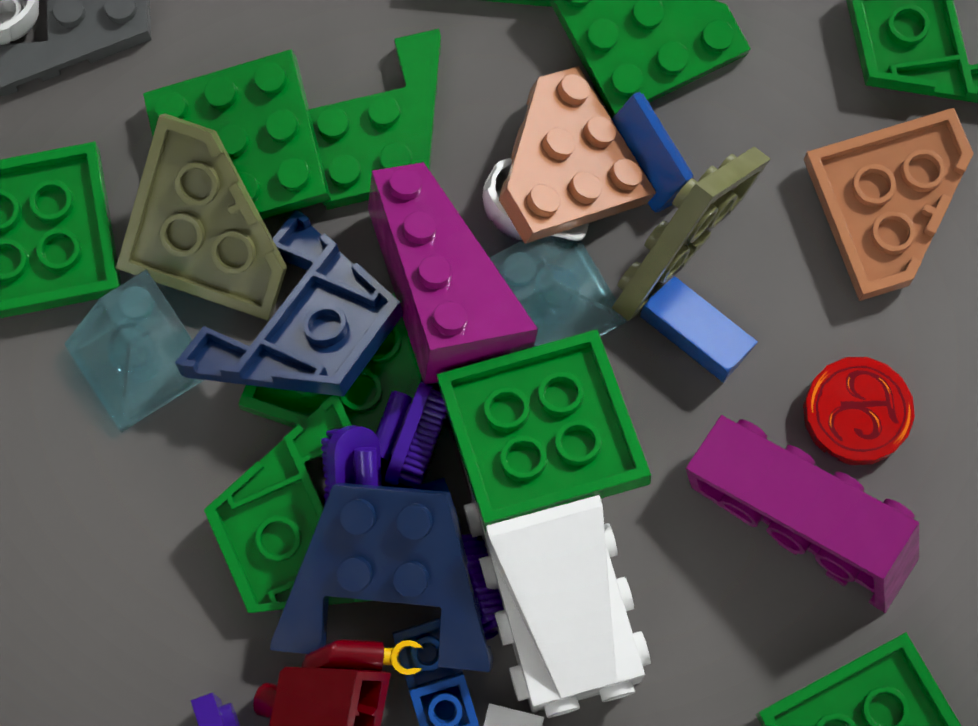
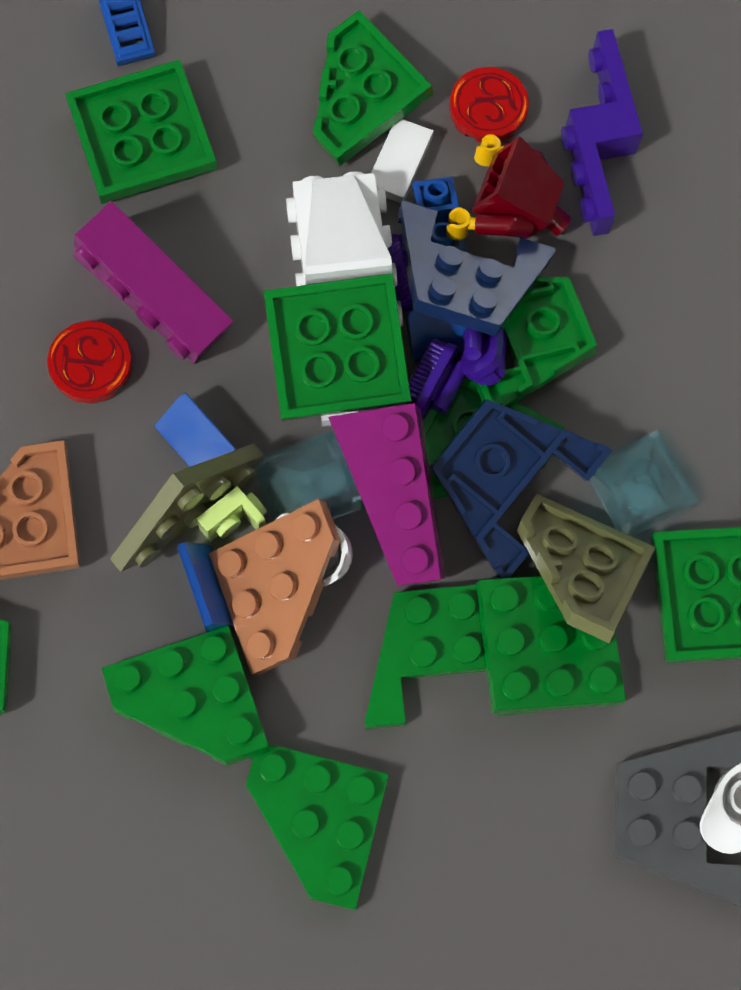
camera: 175 degrees left, 0 degrees up
(625, 249) = (225, 514): none -> yellowish green bracket

